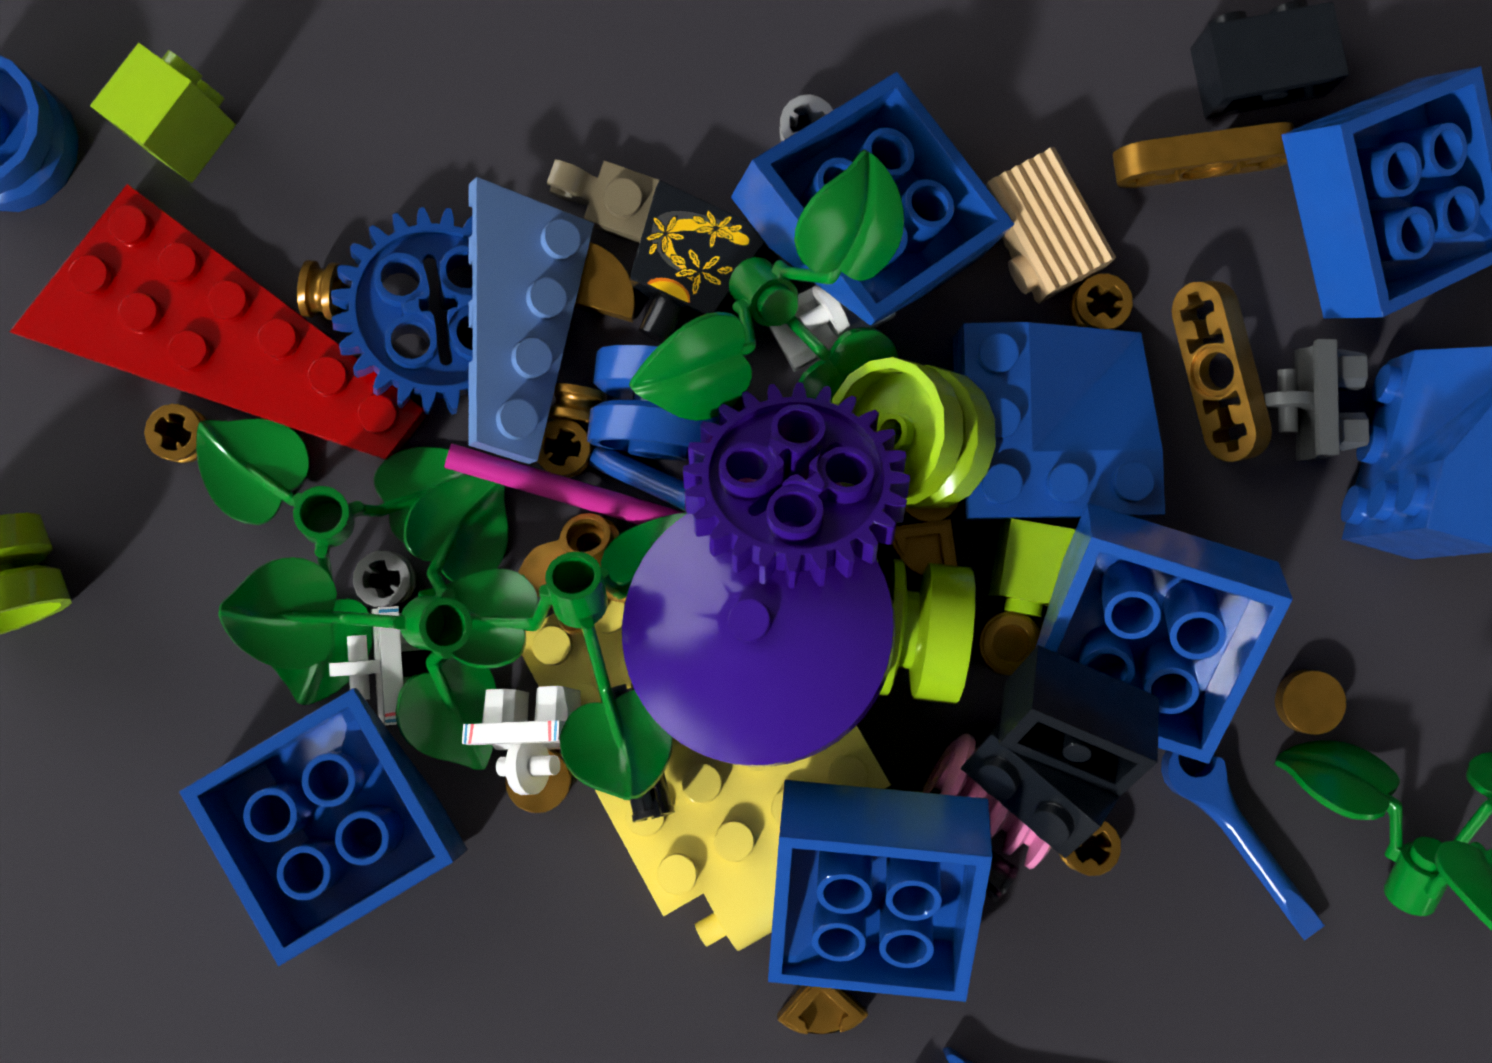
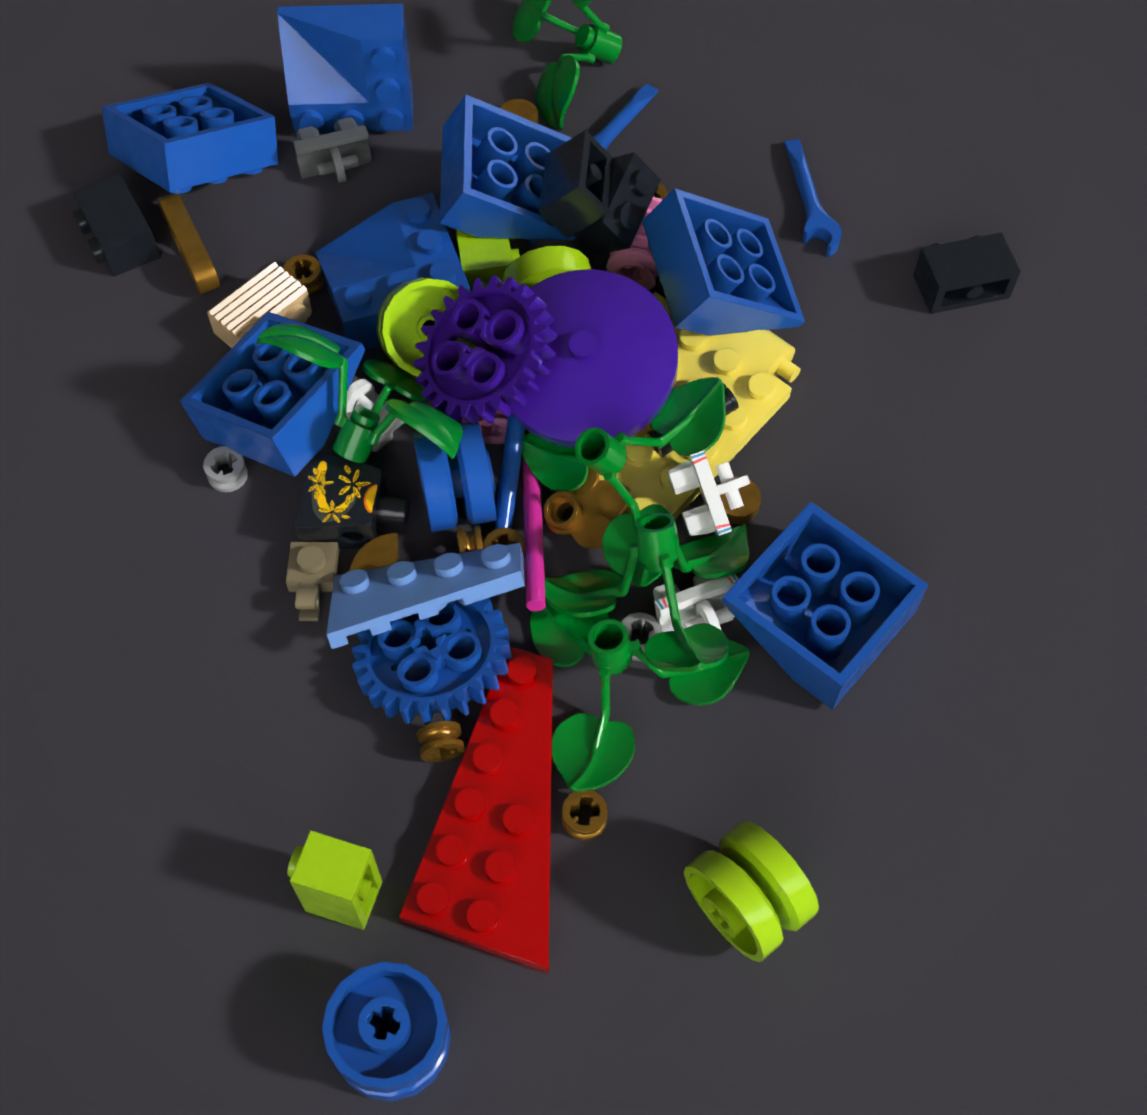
camera: 105 degrees left, 25 degrees down
(821, 1011) = (812, 305): pearl gold tile -> none
(1252, 409) = (360, 200): pearl gold beam -> none

